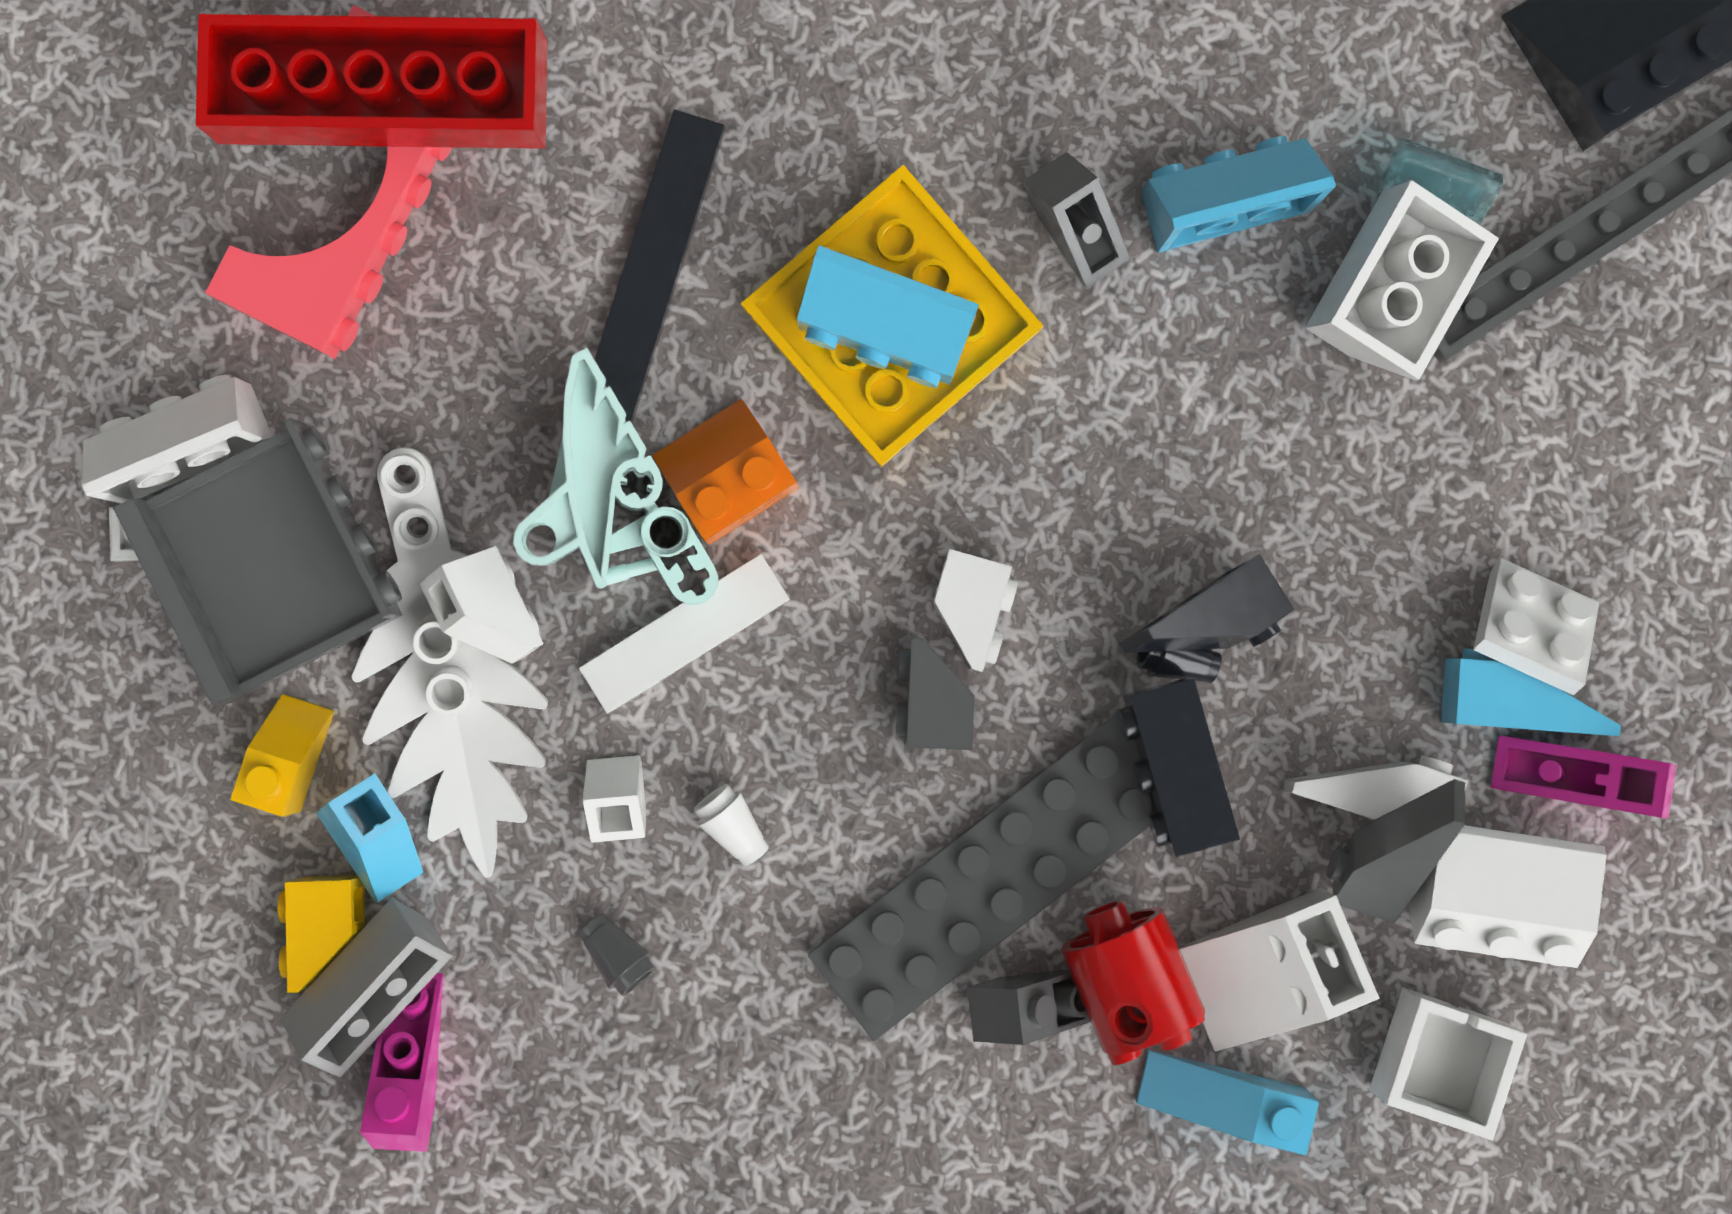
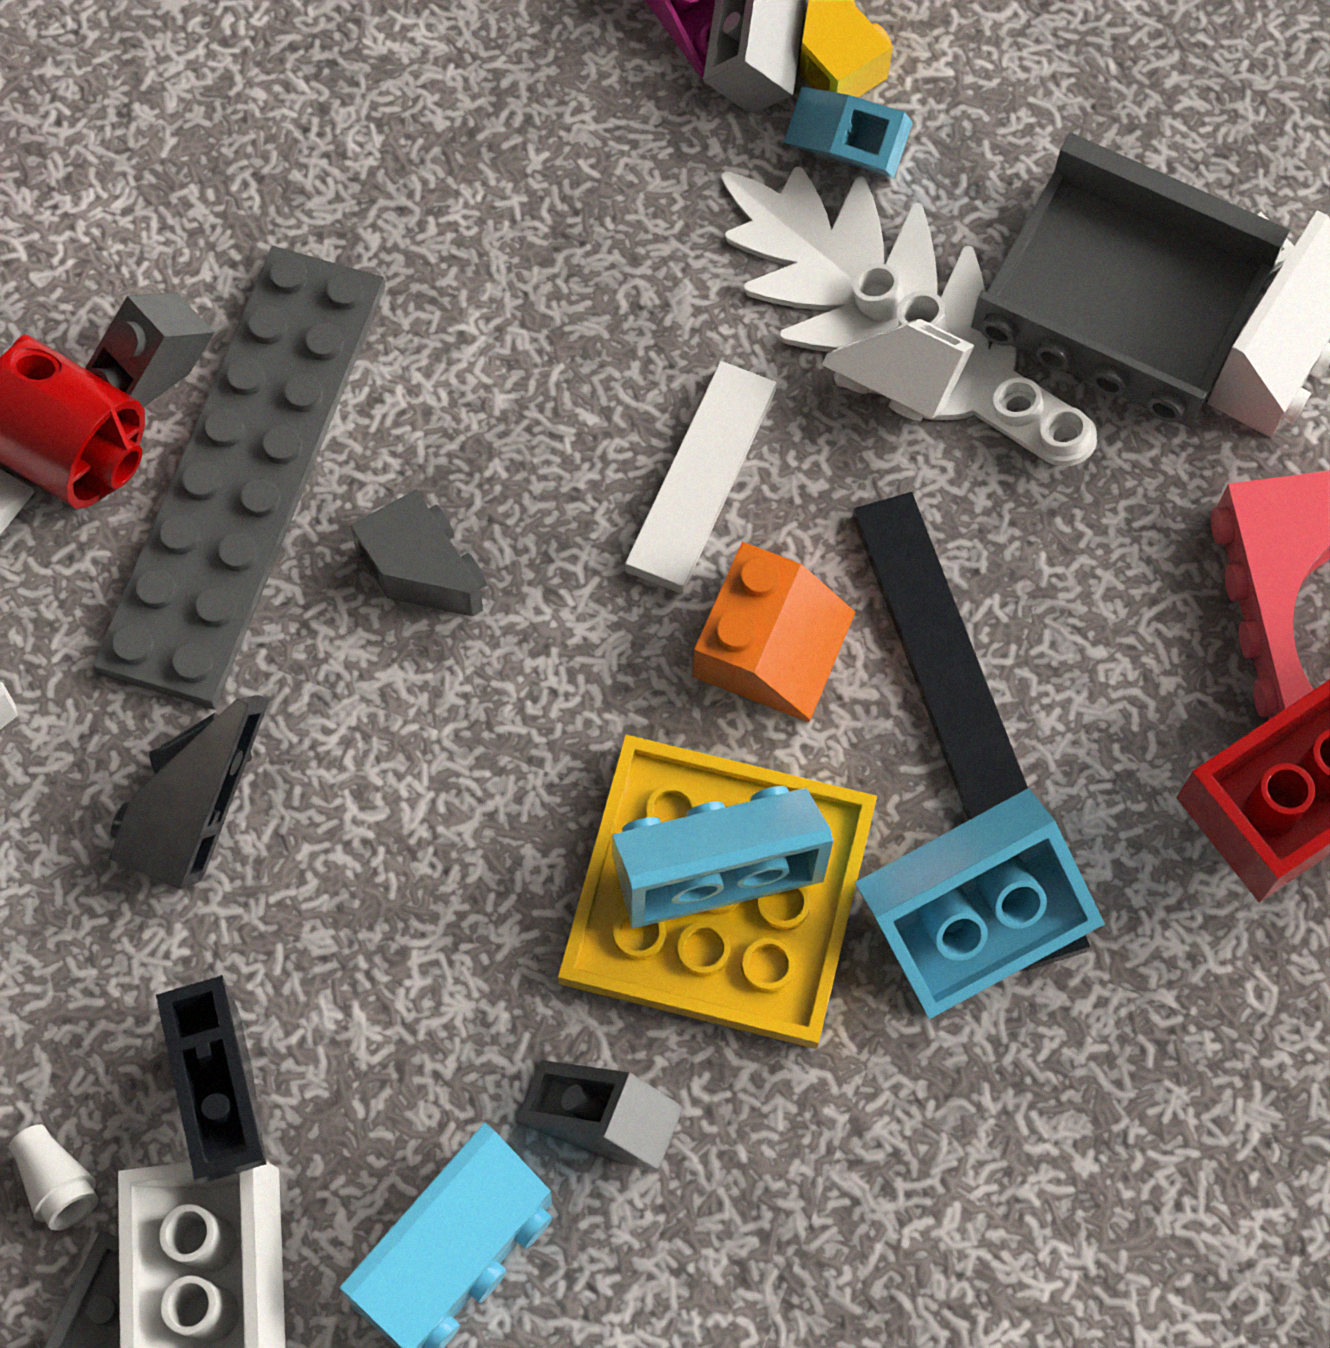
camera: 145 degrees right, 20 degrees down
(283, 757) = (977, 147): yellow slope -> none
(588, 478) = (875, 491): light aqua piece -> none
(614, 799) = (659, 296): white brick -> none
(616, 954) = (559, 175): dark grey cone -> none
(729, 181) = (980, 902): none -> medium azure slope
(731, 824) = (536, 340): white cone -> none
(969, 604) = (447, 665): white slope -> none
(1178, 768) = (134, 631): black brick -> none
(1324, 392) = (212, 1079): none -> black slope
(1454, 420) = (53, 1180): none -> white cone

